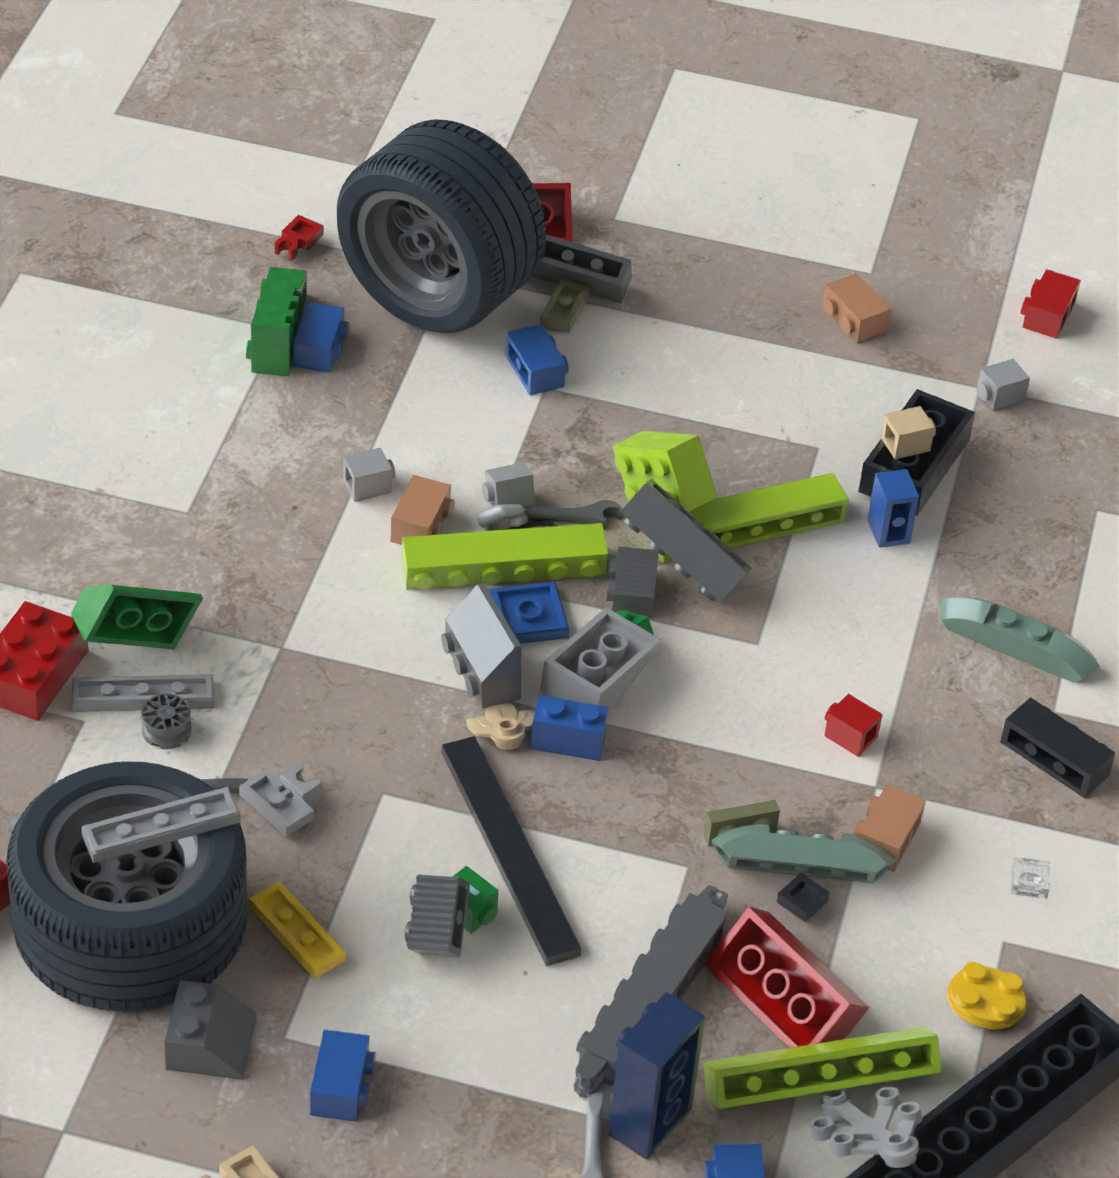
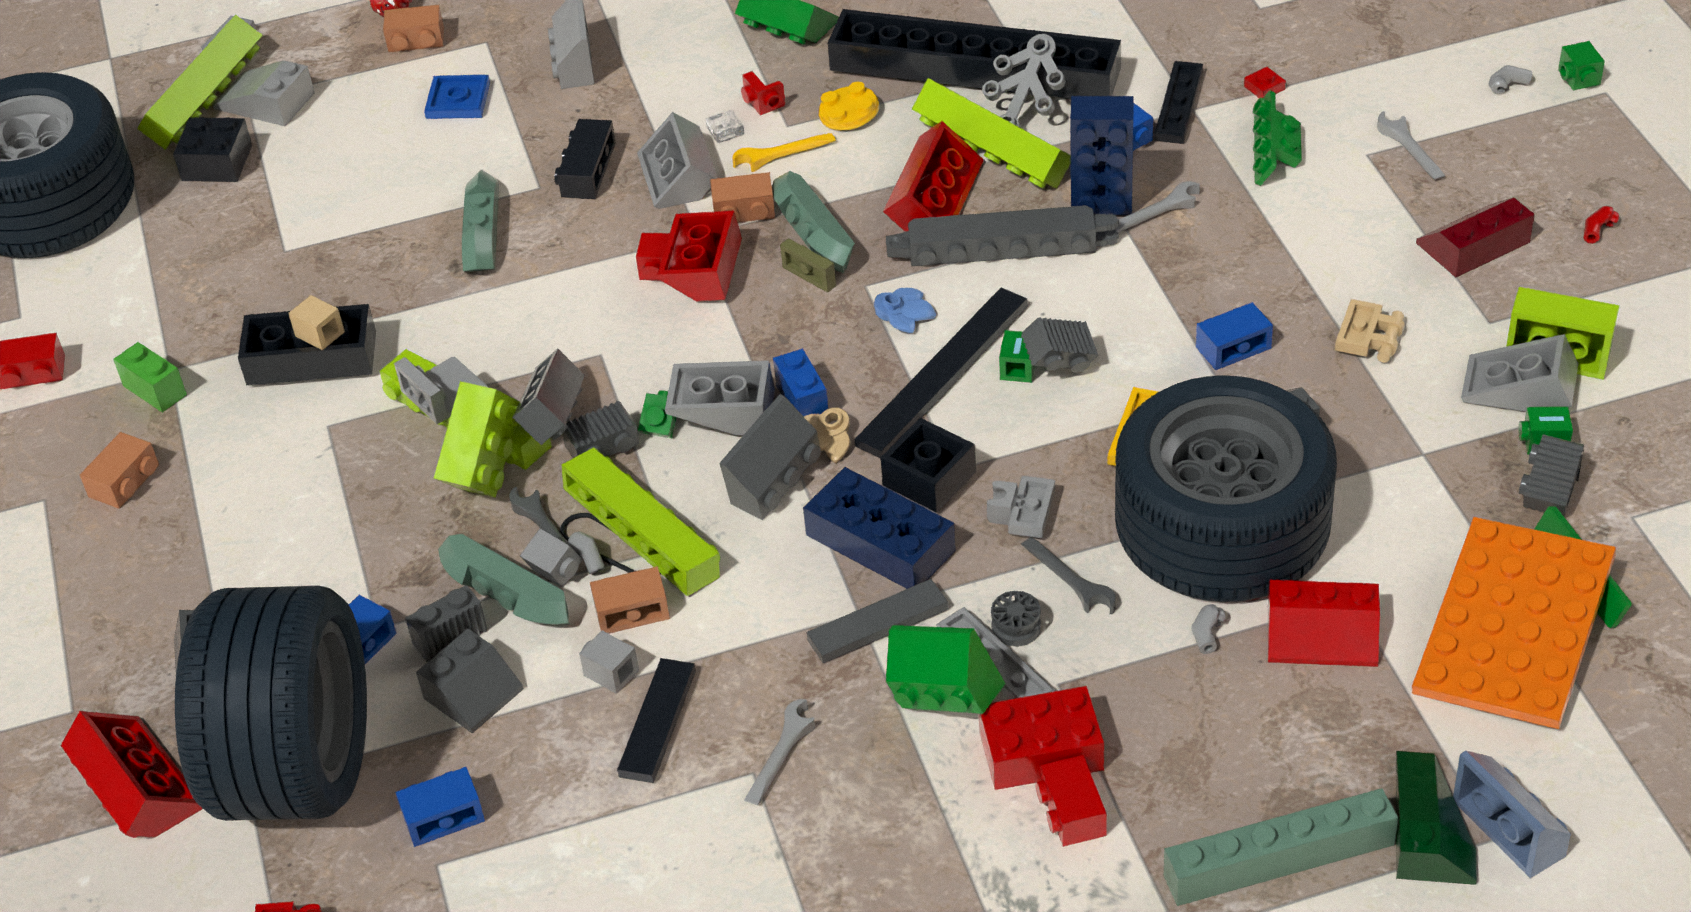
camera: 115 degrees left, 0 degrees up
(160, 824) = (1193, 430): light grey tile -> none
(200, 547) = (794, 729): none -> light grey piece
(256, 648) = (875, 620): none -> dark grey tile
(277, 321) = (440, 844): green wedge -> none
(289, 482) = (656, 720): none -> black tile
(345, 687) = (879, 529): none -> dark blue brick
(383, 750) = (928, 464): none -> black brick
(426, 396) = (468, 681): none -> dark grey slope
(497, 406) = (444, 620): none -> dark grey brick
(533, 611) = (685, 485): blue tile -> none
(537, 450) = (503, 581): none -> sand green brick
(618, 868) = (903, 308): none -> medium blue plate
(759, 478) = (436, 388): none -> light grey bracket
(803, 897) = (848, 211): black plate -> none
(815, 745) = (701, 254): none -> red slope
(893, 508) = (397, 320): blue brick -> none
(960, 886) = (760, 156): none -> yellow piece
(961, 356) = (150, 377): none -> bright green brick
(989, 811) = (676, 163): none -> light grey slope
(1003, 384) = (170, 341): light grey brick -> none
(1064, 927) = (762, 97): none -> red bracket

